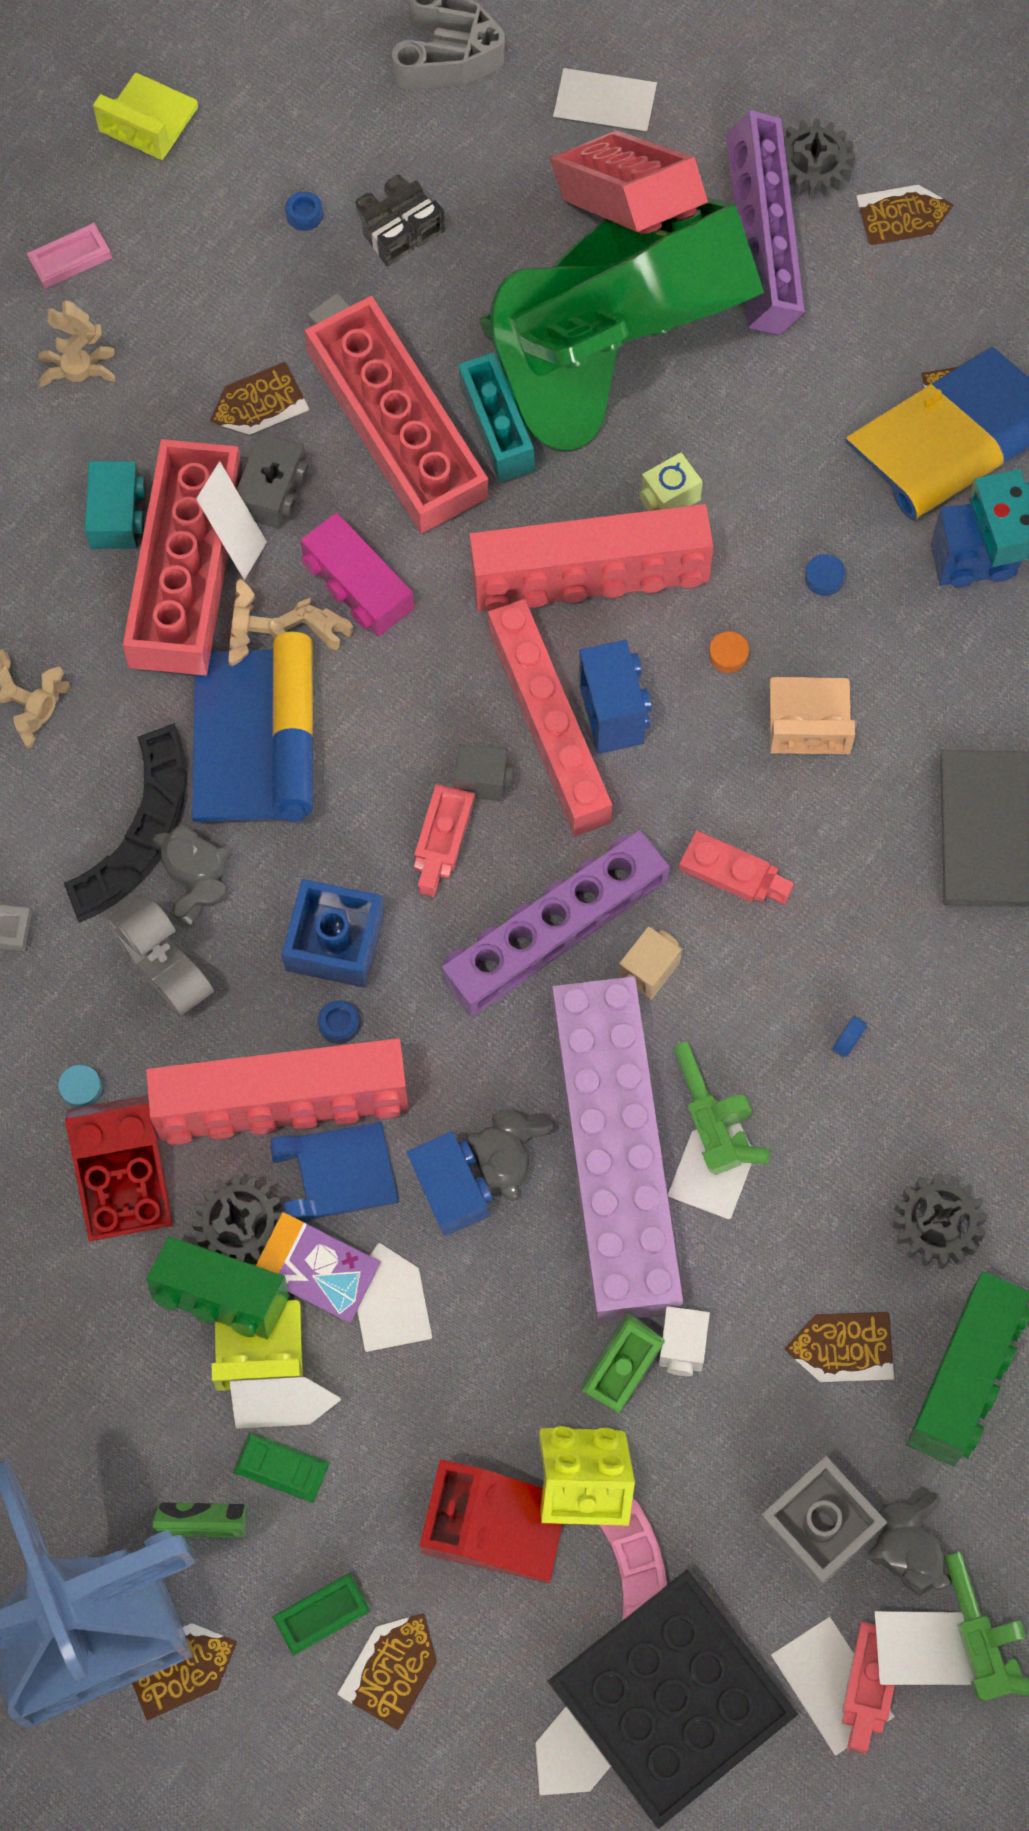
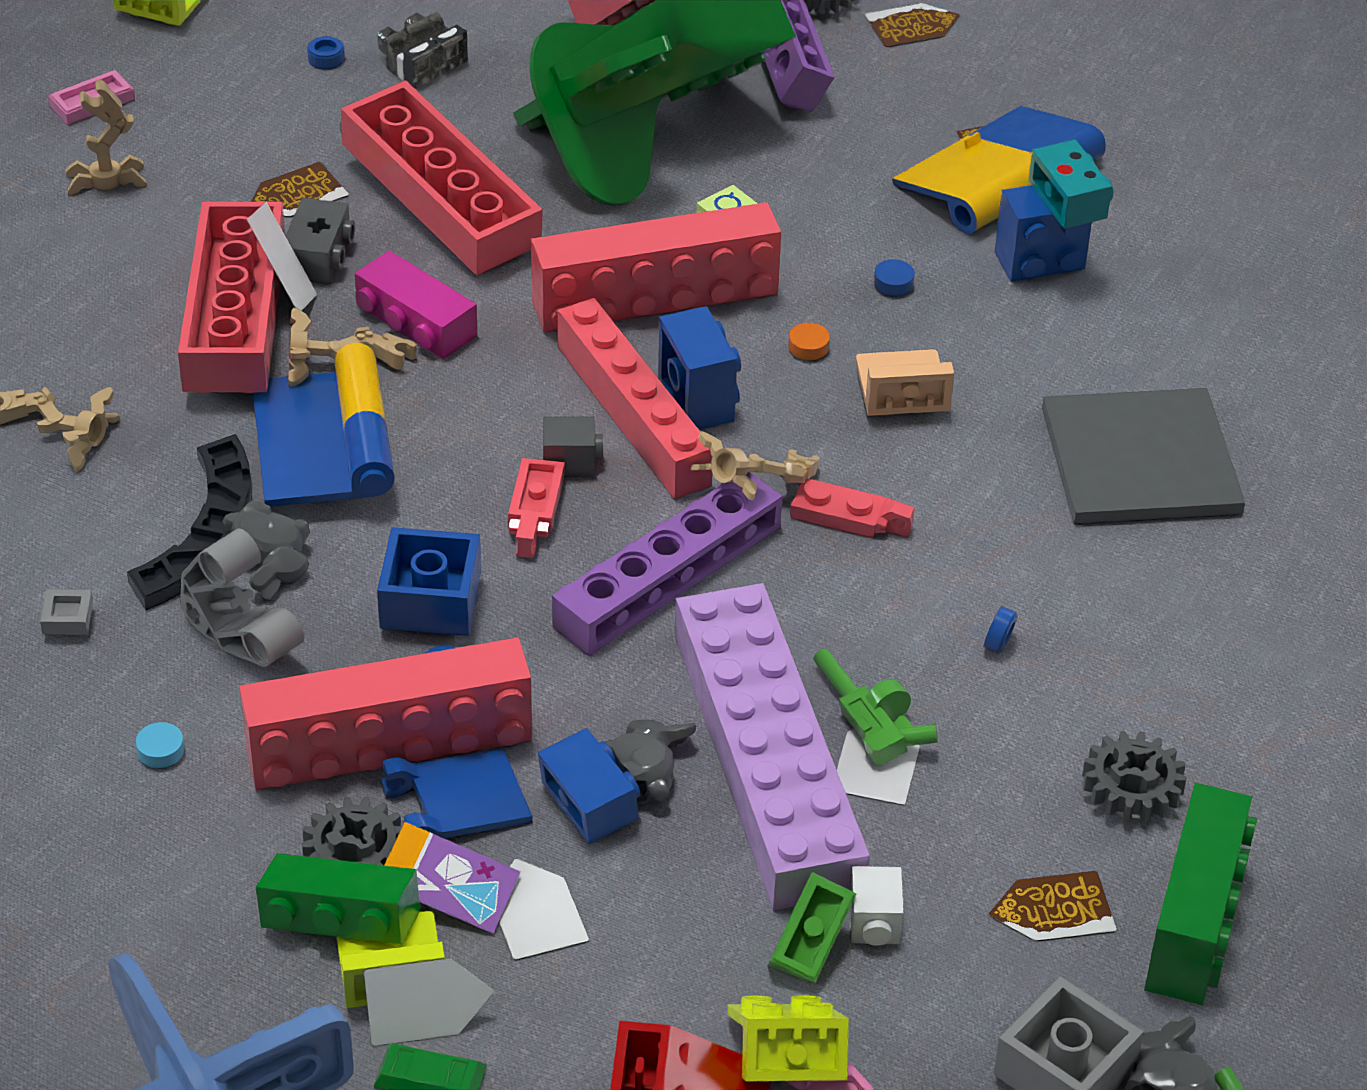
camera: 10 degrees left, 25 degrees down
(113, 505) = (155, 269): teal brick -> none
(118, 1168) = (211, 805): red slope -> none
(496, 417) = (543, 174): teal brick -> none
(626, 834) = (732, 465): none -> tan piece
(651, 961) = (783, 578): tan brick -> none

